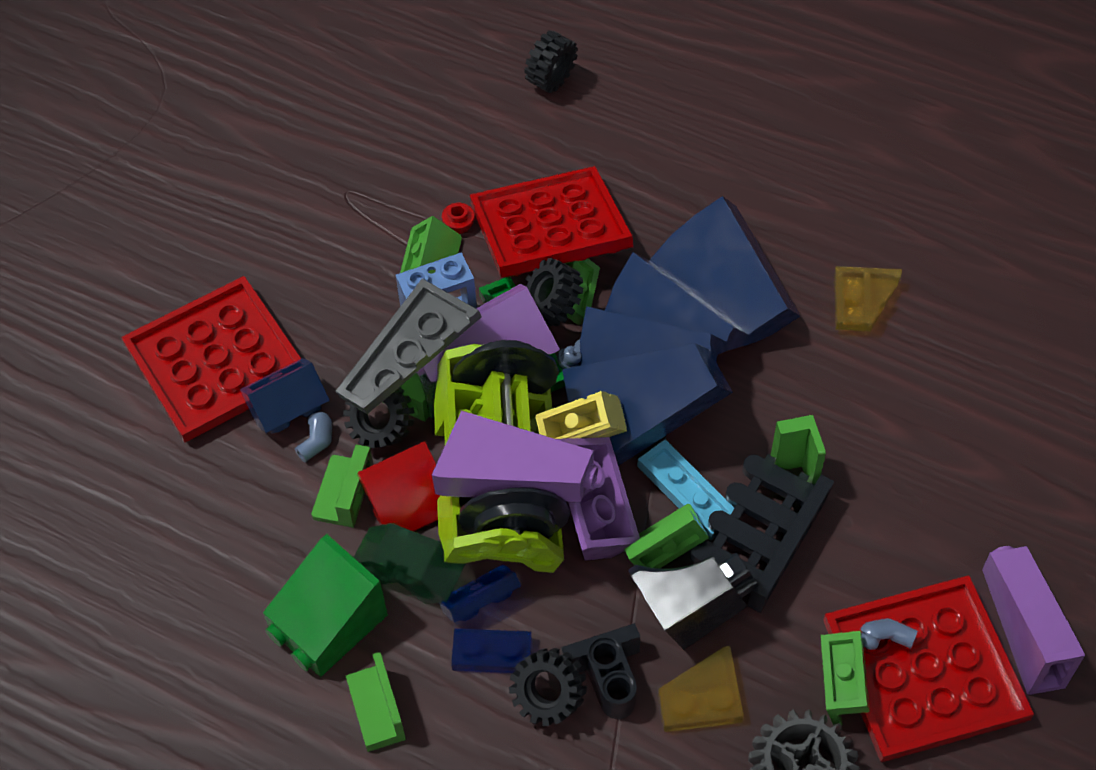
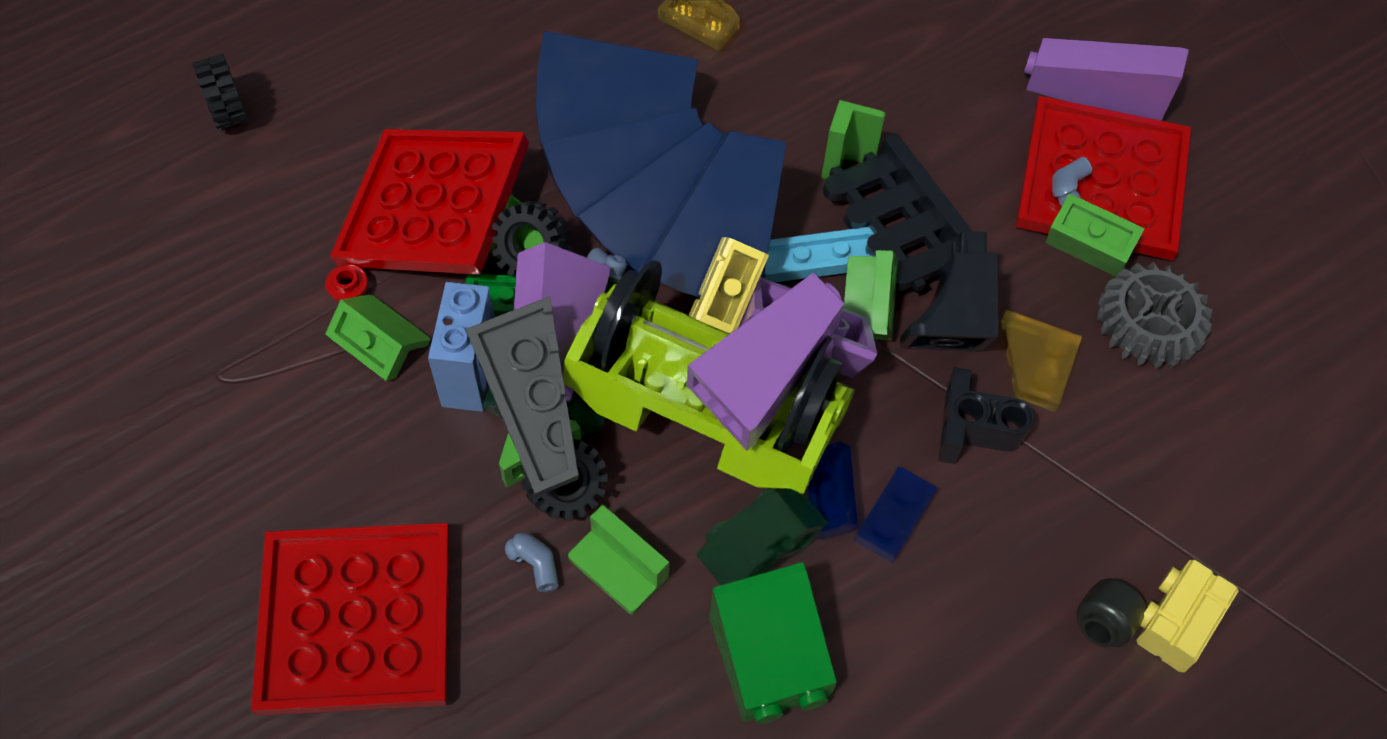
camera: 65 degrees left, 5 degrees up
(285, 396) = (469, 562): dark blue brick -> none
(375, 706) = (902, 648): bright green panel -> none
(403, 488) = (672, 497): red slope -> none
(528, 696) = (999, 482): black tyre -> none

